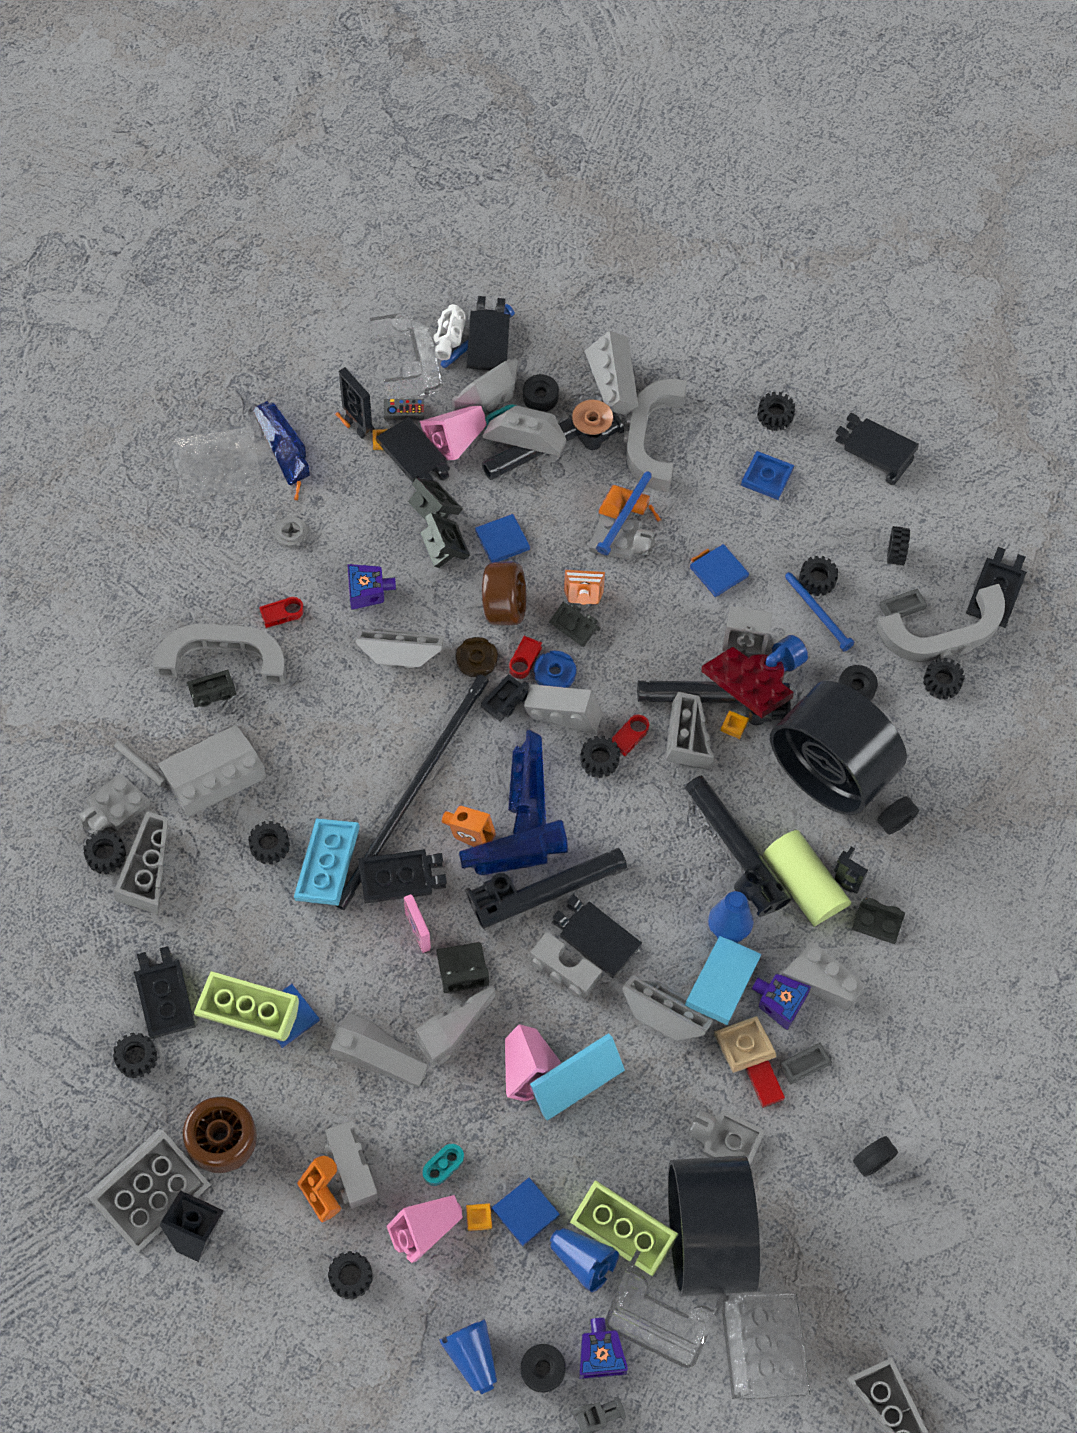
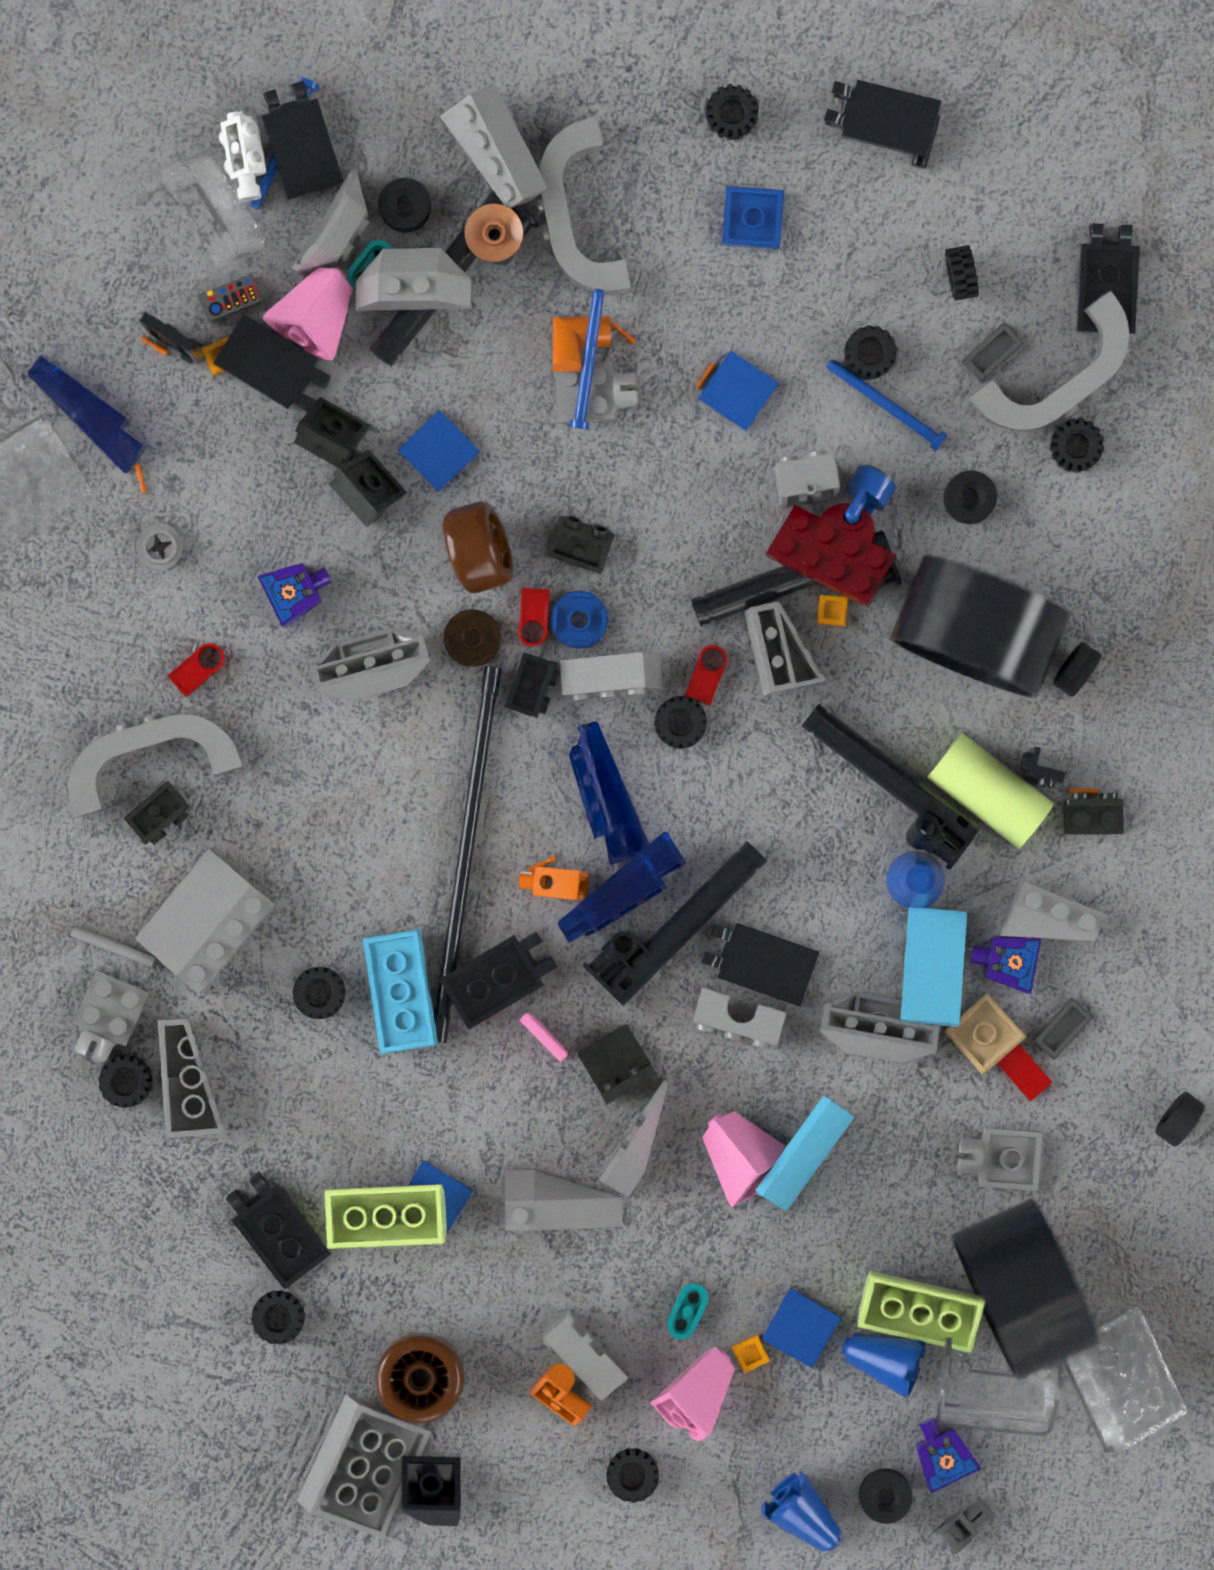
camera: 15 degrees left, 25 degrees up
(584, 586) = (574, 492): orange torso -> none

